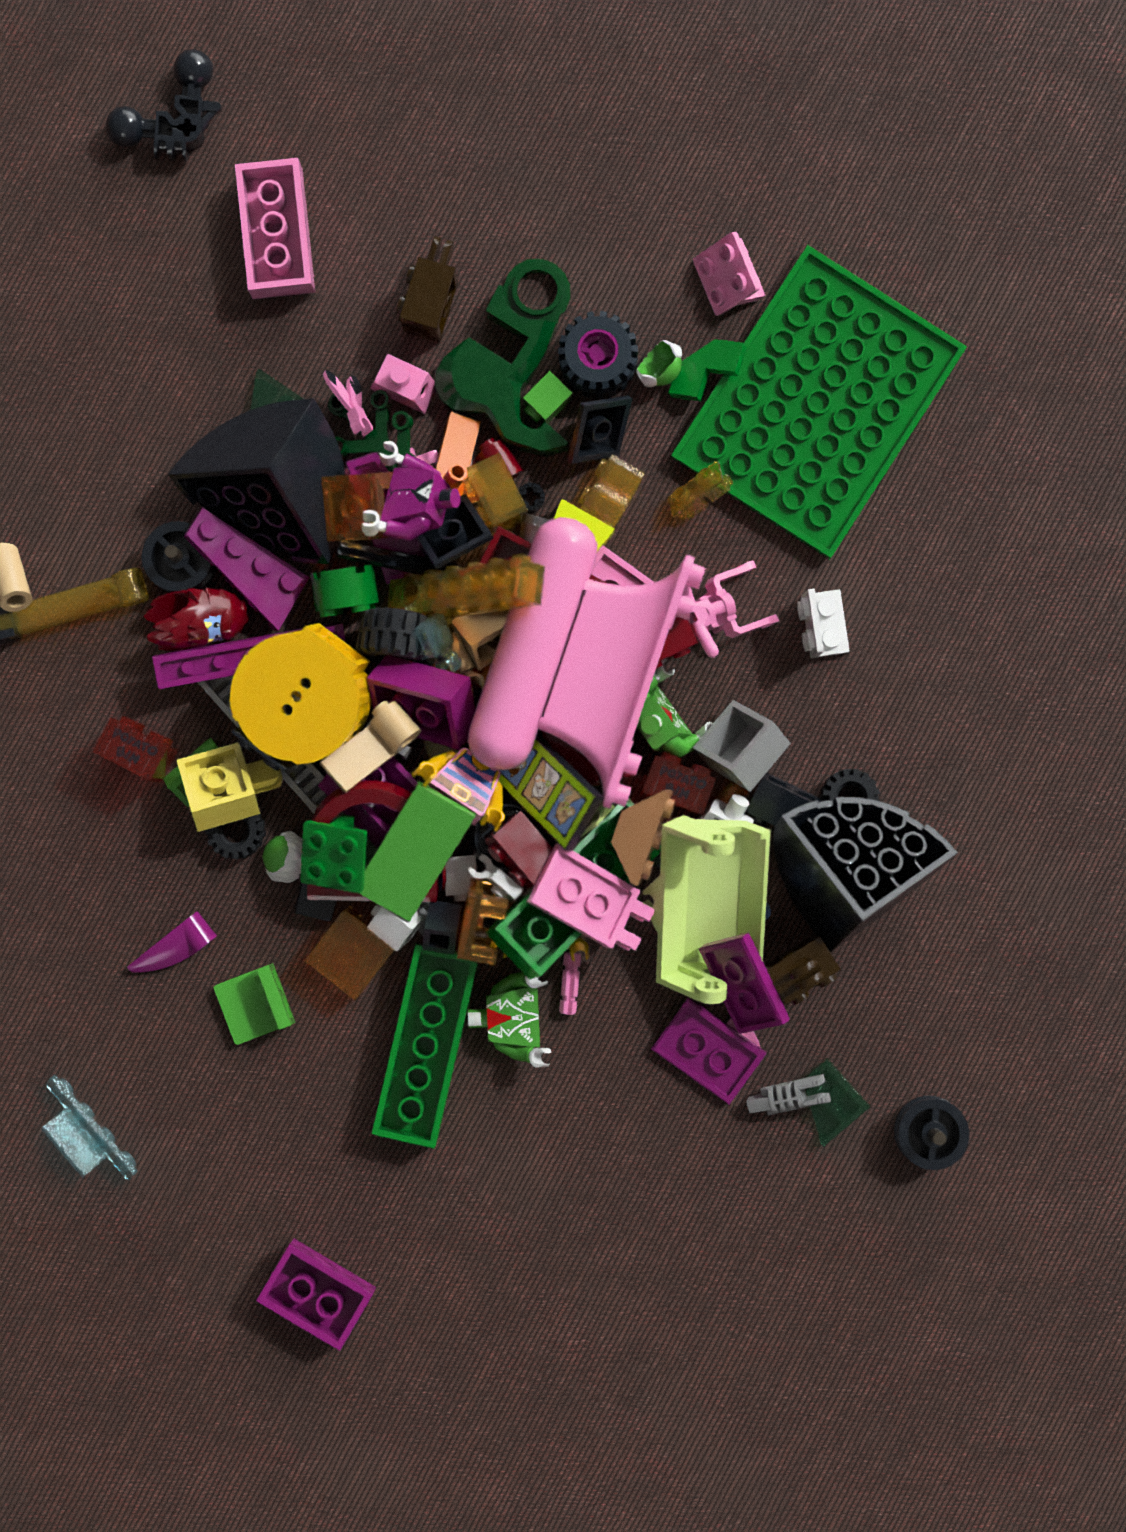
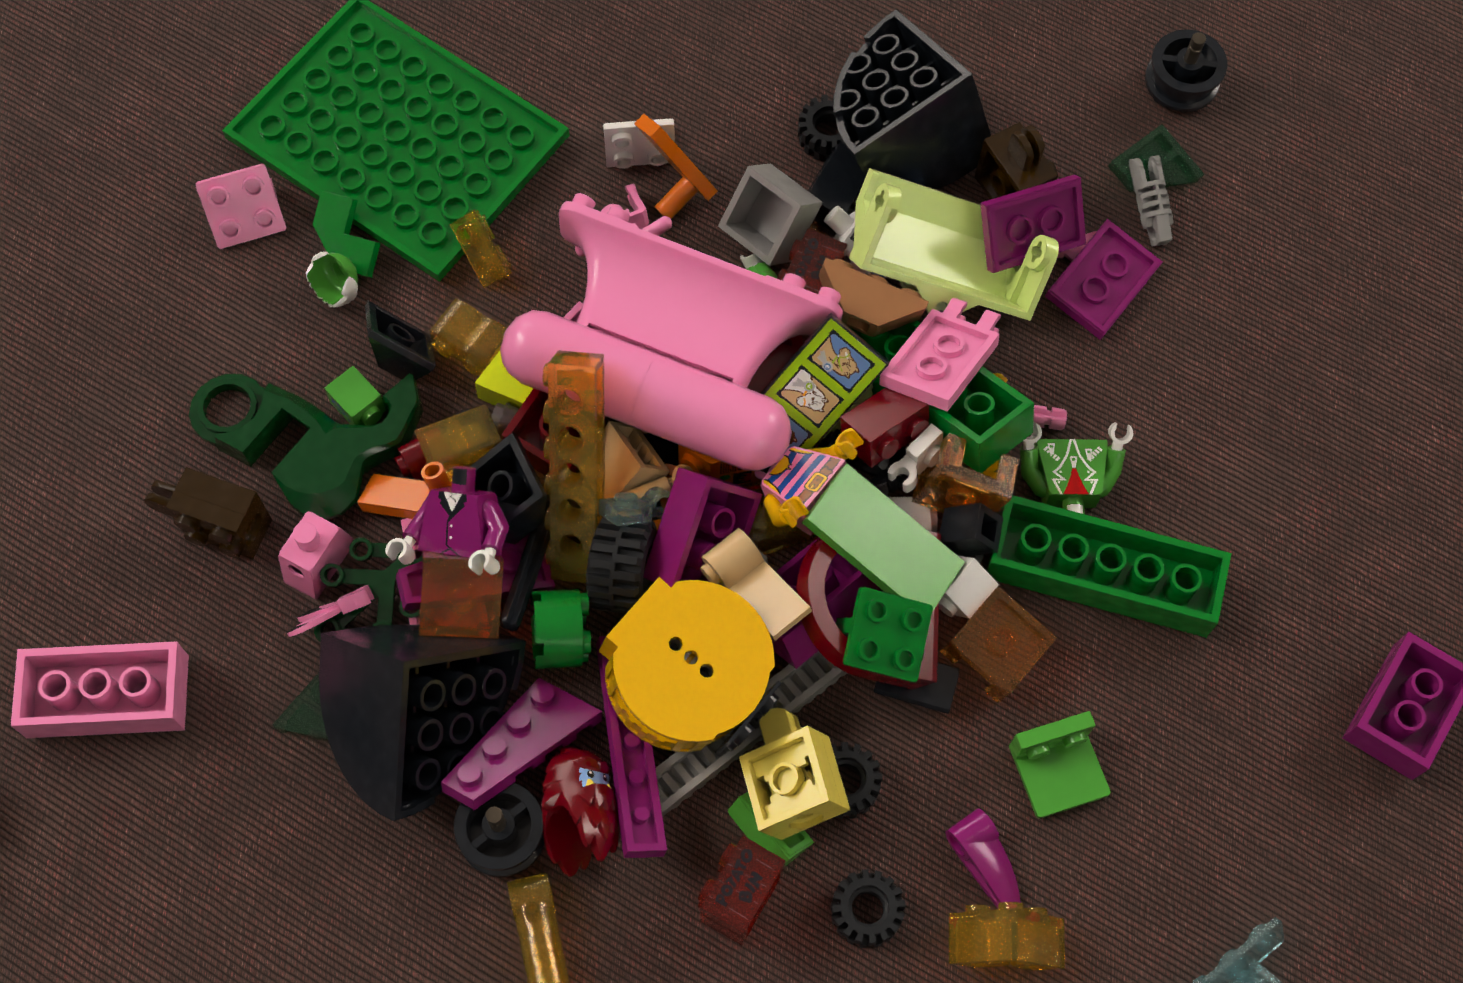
camera: 90 degrees left, 20 degrees down
(109, 959) = (1006, 937): none -> clear yellow brick
(115, 855) = (885, 891): none -> black tyre
(283, 857) = (880, 721): hair -> none
(598, 354) = (312, 340): black wheel -> none
(785, 667) = (692, 178): none -> orange piece

